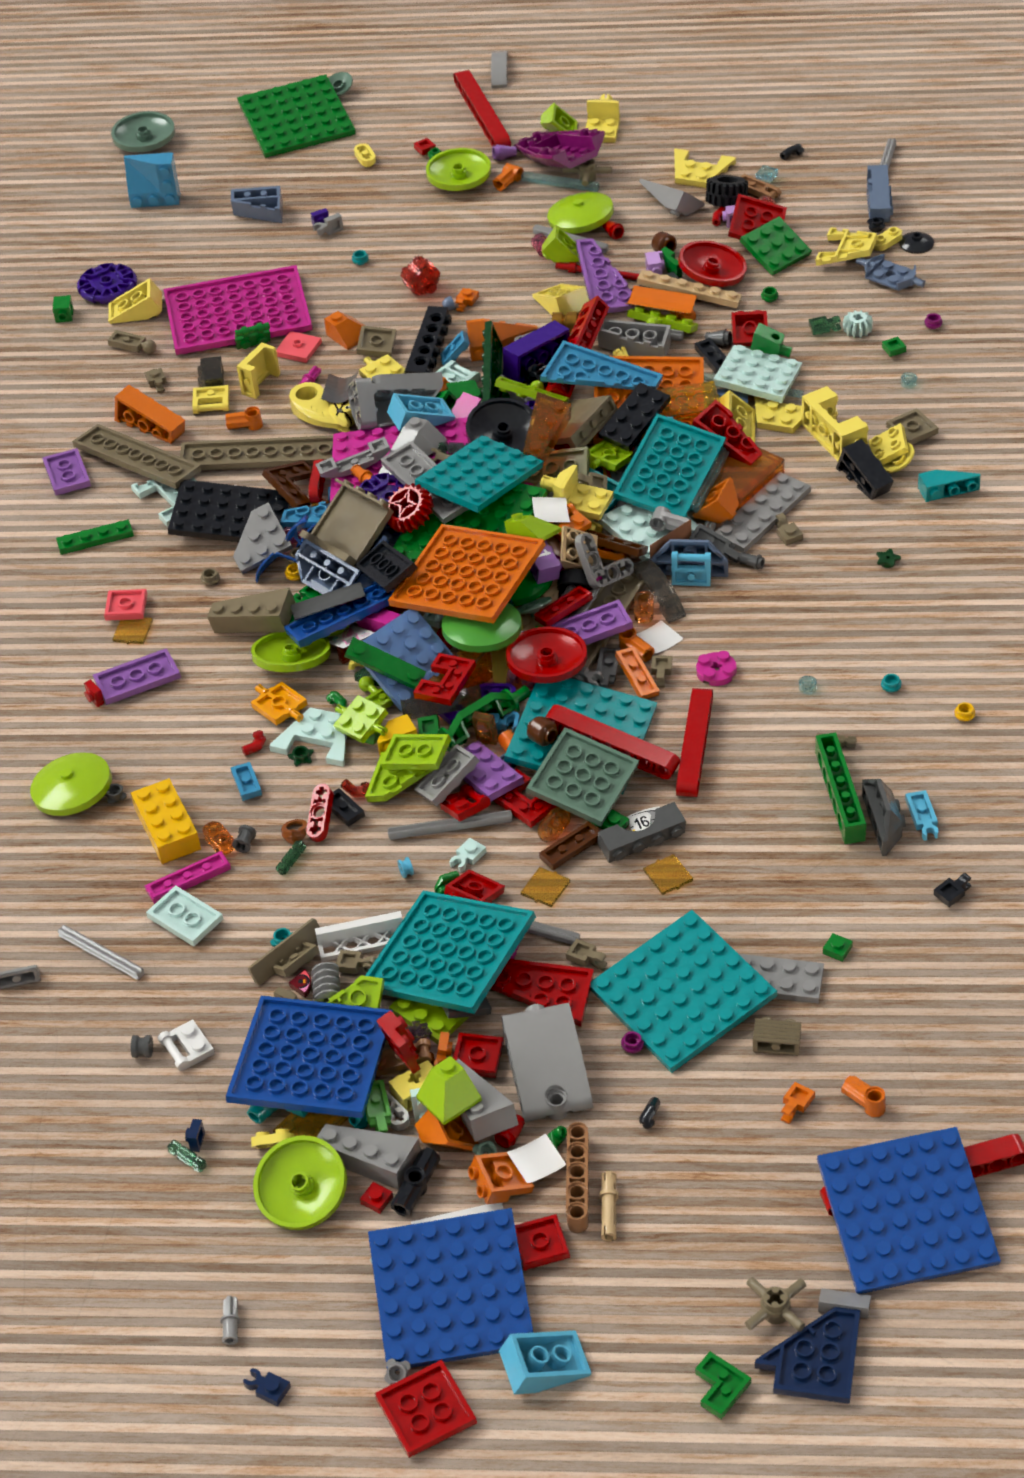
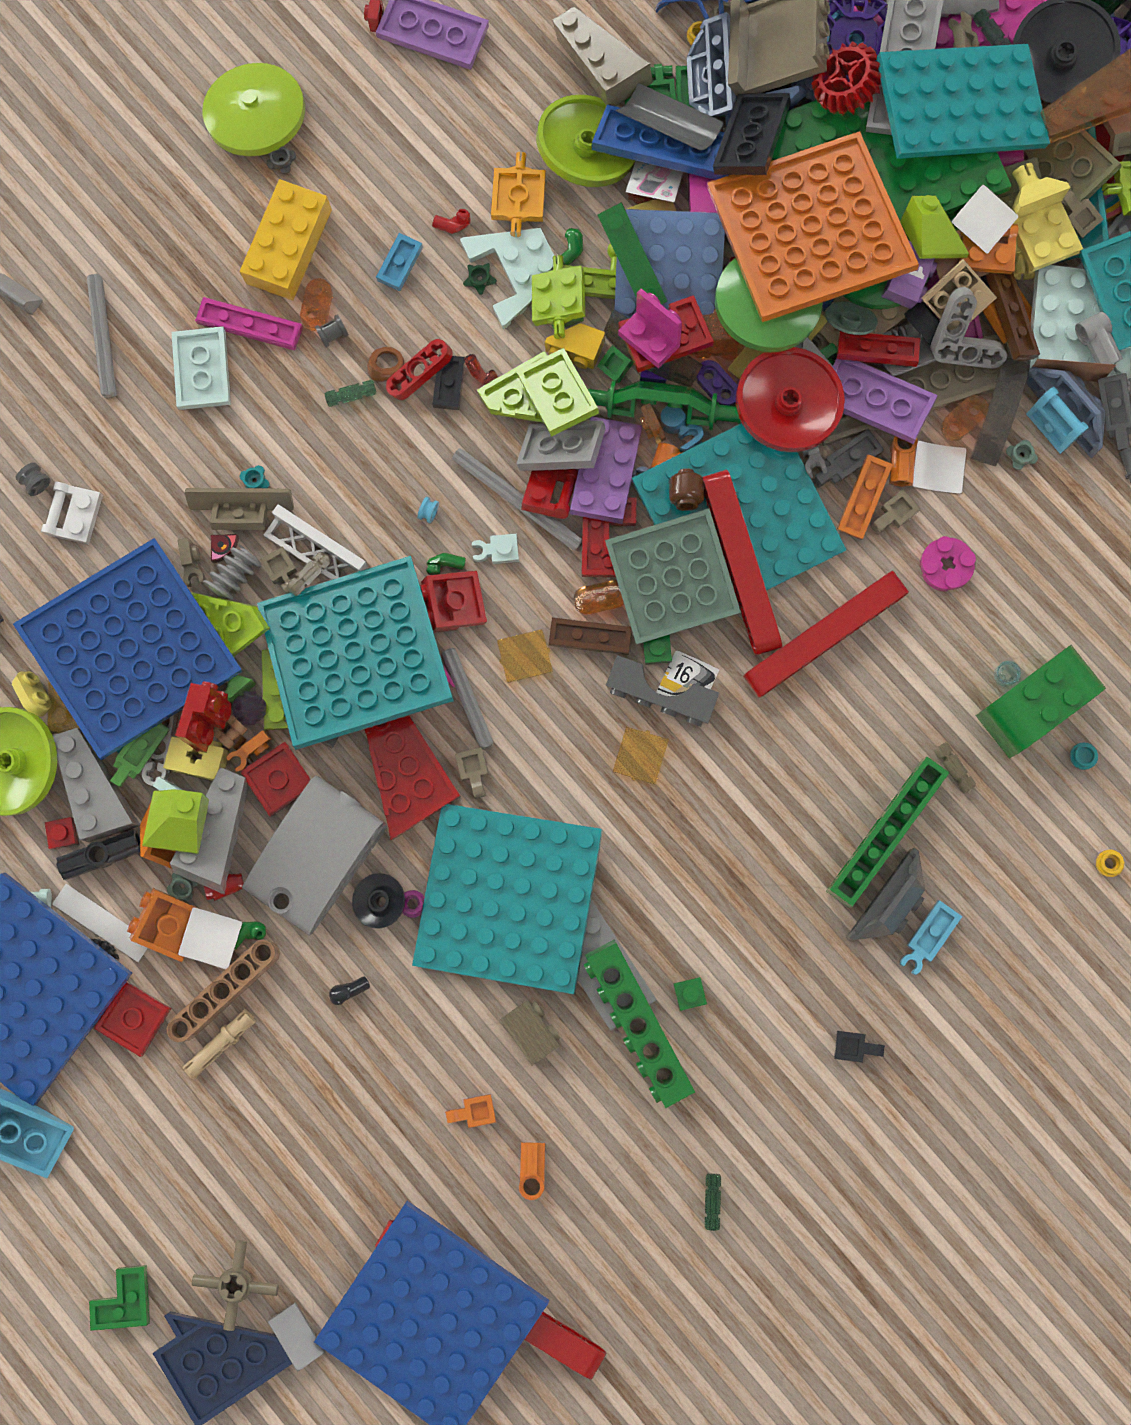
camera: 50 degrees right, 35 degrees up
(373, 945) = (308, 573): none -> dark tan axle
(437, 670) = (652, 329): none -> dark pink bracket
(606, 1048) = (366, 900): none -> black dish
(692, 598) = (1023, 447): none -> sand green plate
(829, 972) = (677, 1084): none -> green brick
(839, 674) = (1041, 702): none -> green brick
(977, 1022) = (712, 1201): none -> clear green axle

